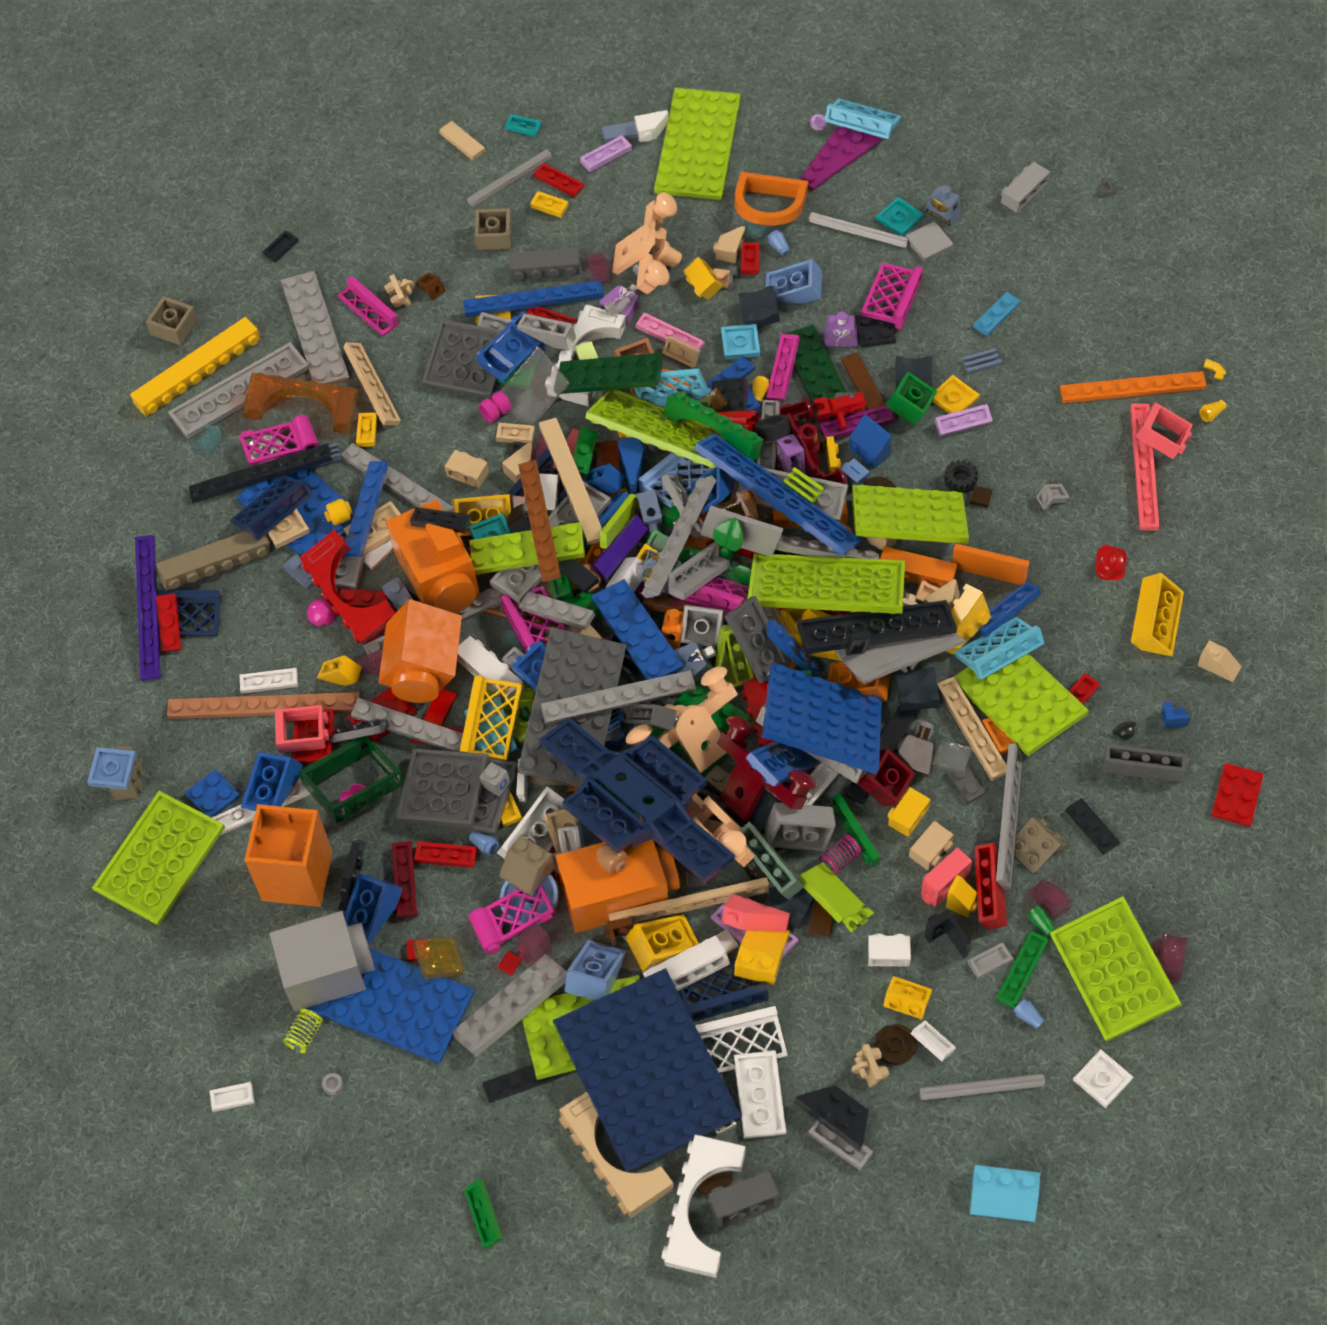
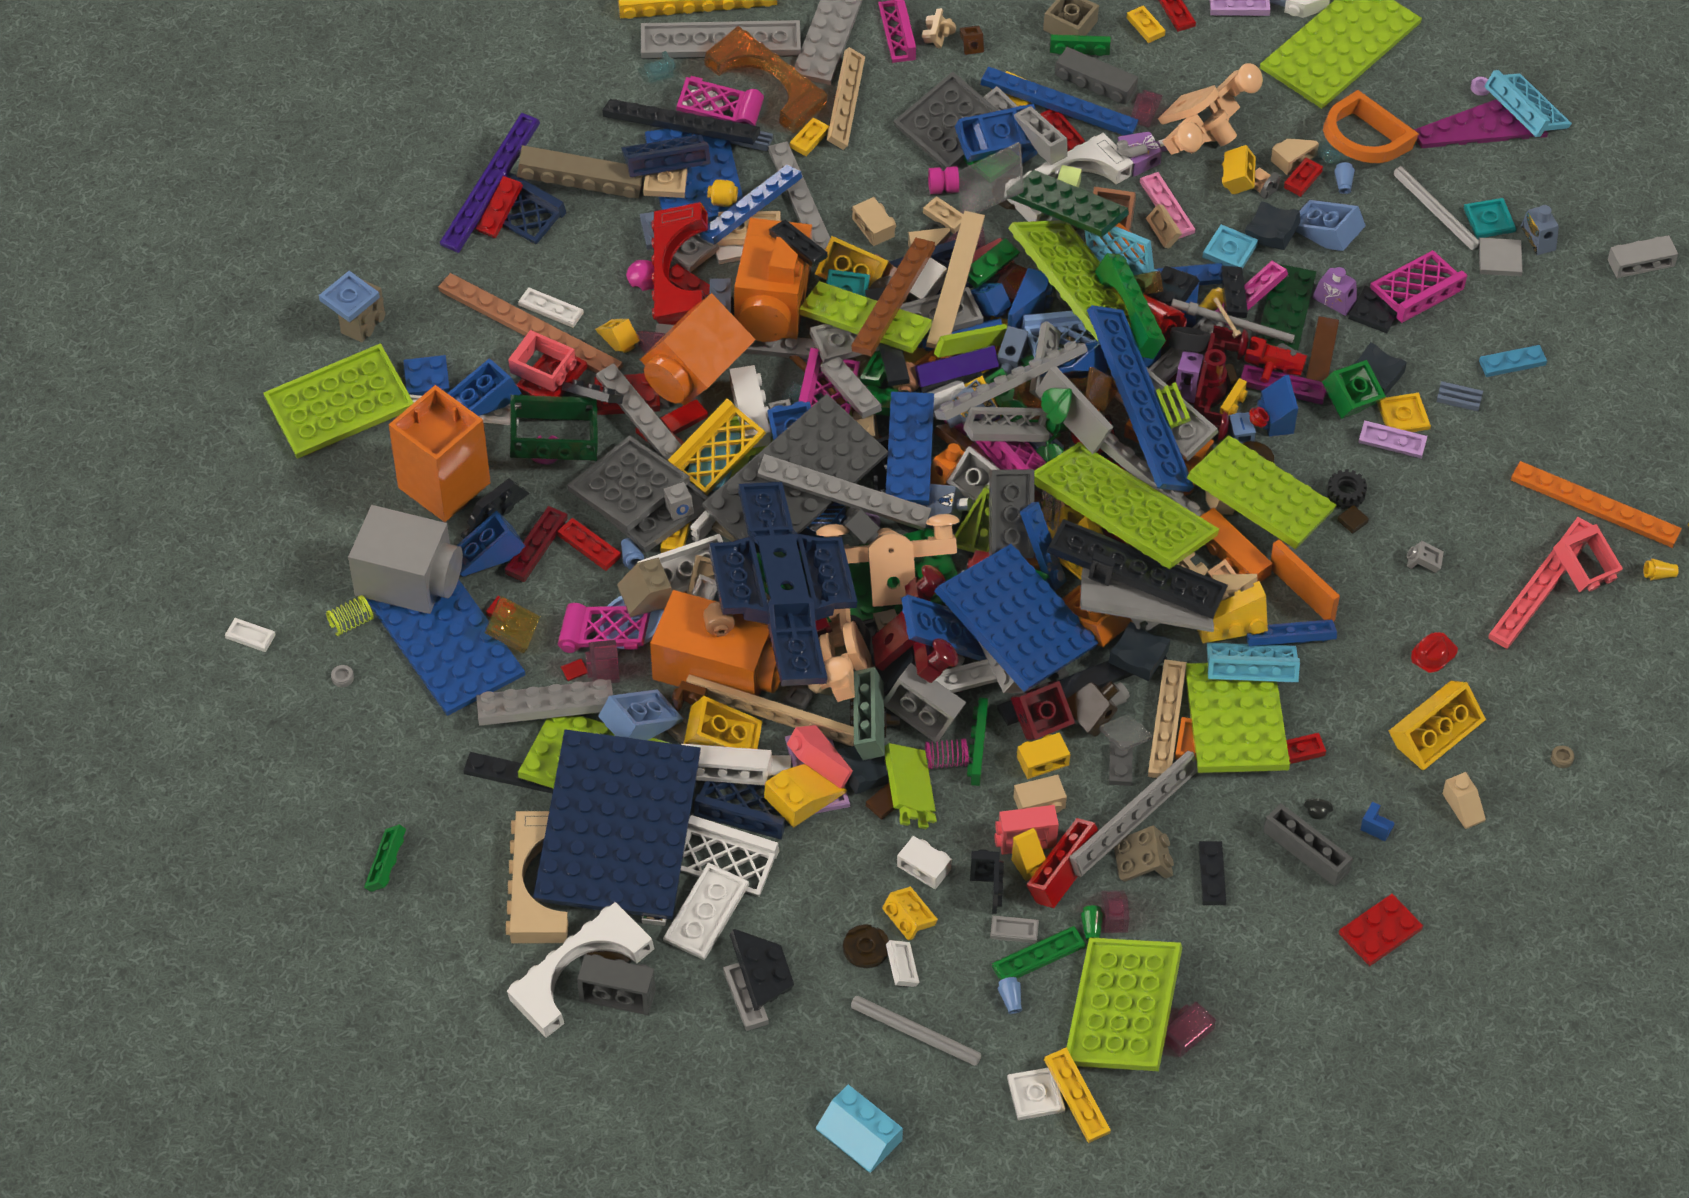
camera: 30 degrees right, 5 degrees down
(518, 244) = (1085, 44): none -> green plate
(758, 403) = (1193, 309): none -> light grey bar
(772, 373) = (1233, 291): none -> black plate
(787, 396) = (1236, 333): none -> tan piece
(864, 458) = (1258, 417): none -> red plate
(867, 1066) = (822, 945): tan hips -> none
(1135, 1061) = (1077, 1095): none -> yellow plate
(1255, 587) = (1562, 756): none -> dark tan tile

